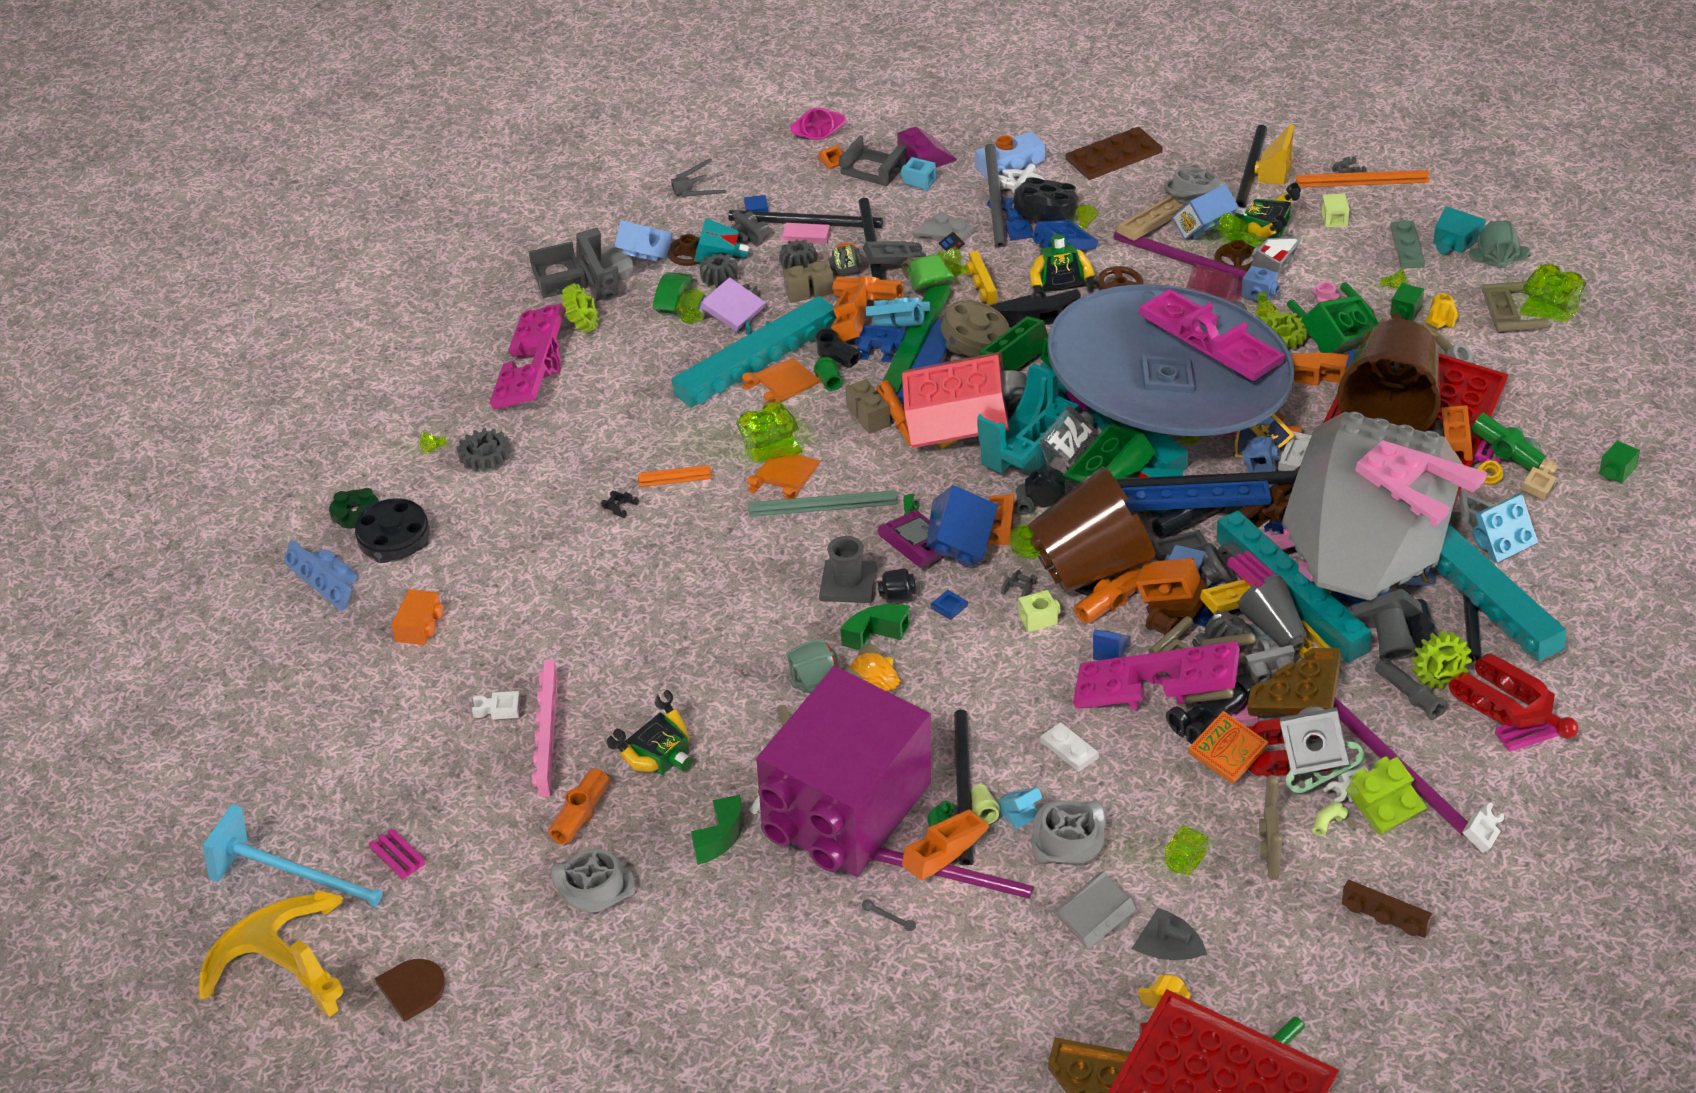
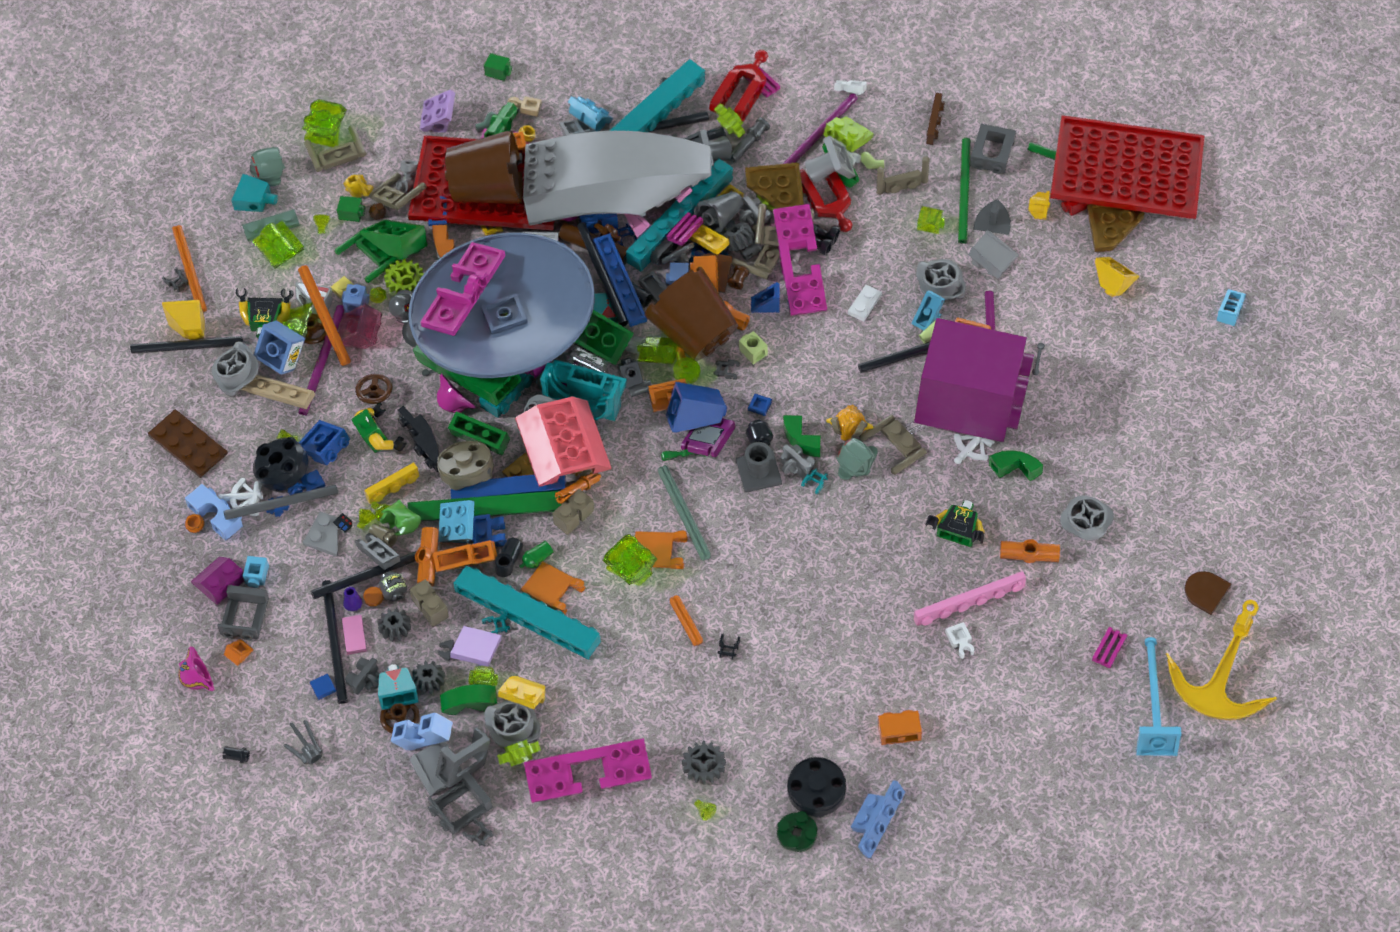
camera: 110 degrees left, 15 degrees up
(523, 284) = (475, 837): none -> dark grey piece
(624, 317) = (515, 729): none -> light grey piece
(653, 327) = (522, 691): none -> yellow slope
(709, 143) = (236, 754): none -> black pin
(797, 632) = (810, 477): none -> teal piece
(837, 610) = (794, 462): none -> light grey hips
(845, 229) = (352, 600): none -> dark purple cone
(995, 1046) = (1114, 276): none -> yellow slope
(1228, 747) = (846, 211): orange tile -> none
(1236, 914) = (964, 191): none -> green piece
(1239, 247) = (324, 315): none -> orange axle
(1289, 286) = (340, 286): none -> light yellow plate
(1317, 989) = (994, 134): none -> dark grey panel
(1325, 291) = (343, 259): bright pink plate -> none
(1335, 210) = (242, 274): yellowish green brick -> none
(1371, 240) = (278, 243): none -> clear neon green plate
(1400, 466) = (596, 149): bright pink wing -> none
(1537, 391) = (437, 112): none -> lavender plate

